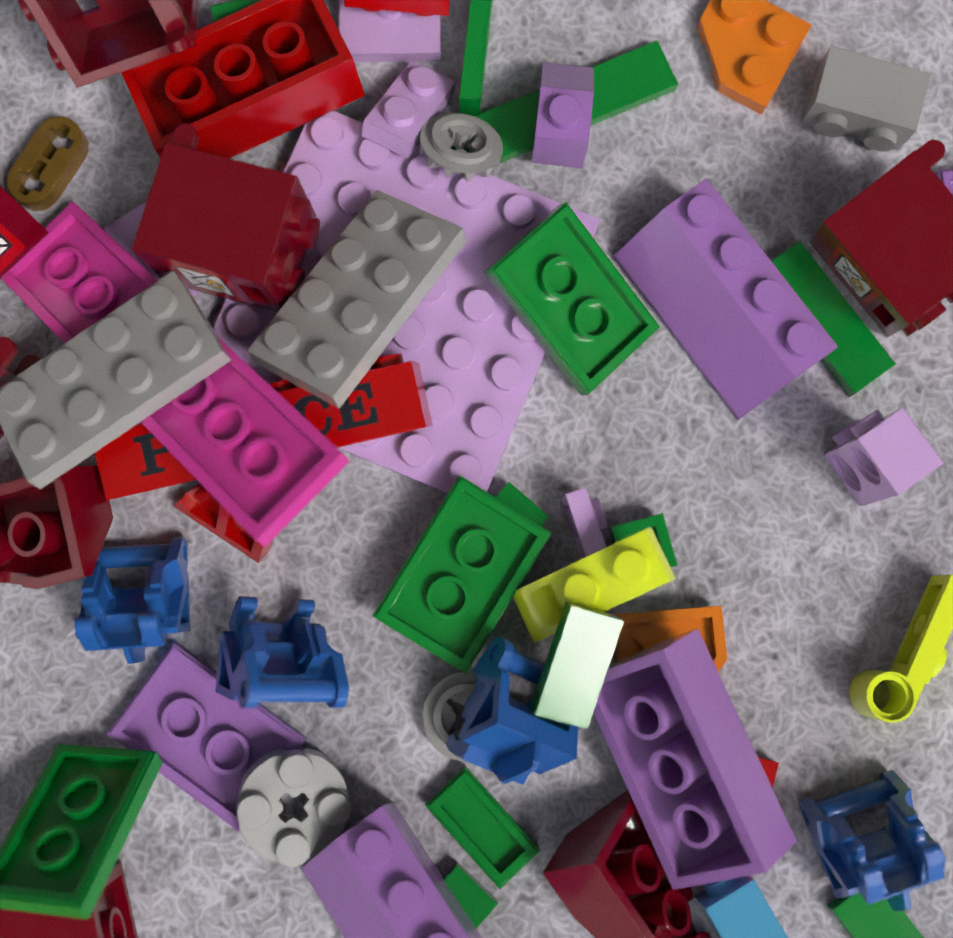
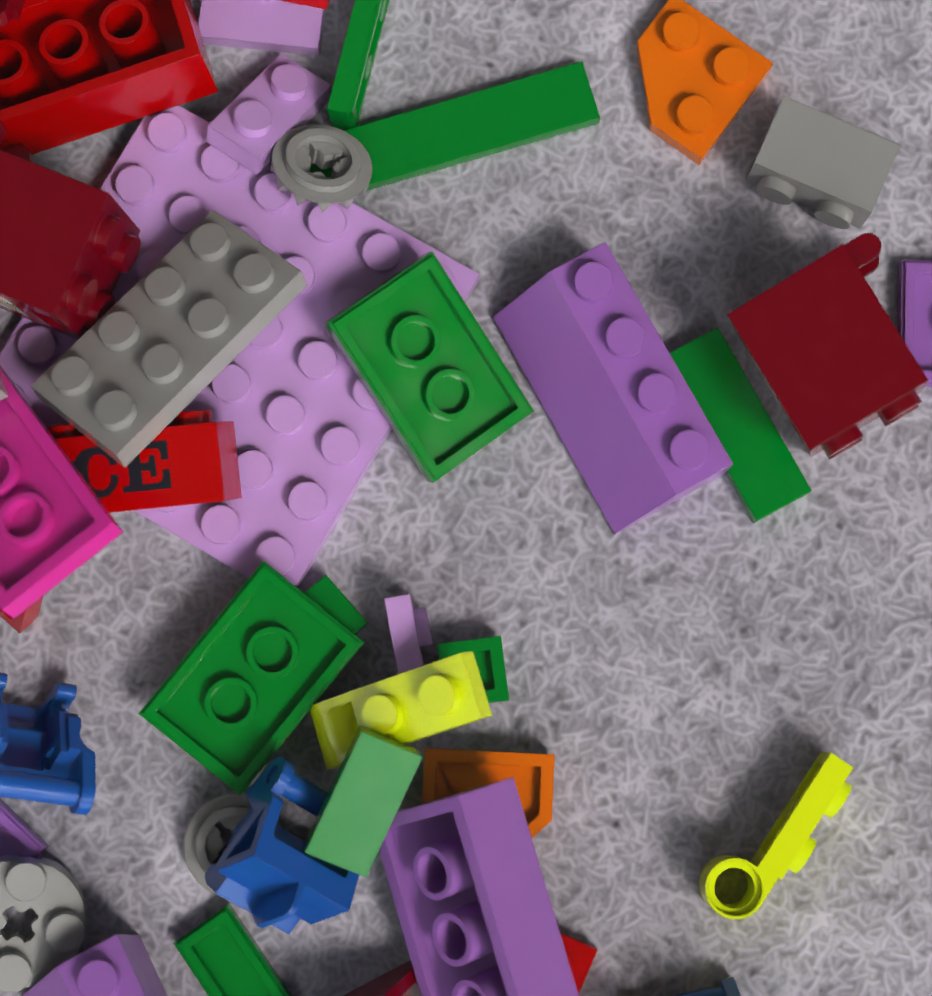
camera: 20 degrees right, 0 degrees up
(563, 115) = (449, 140): medium lavender slope -> none
(881, 456) = (765, 600): lavender brick -> none

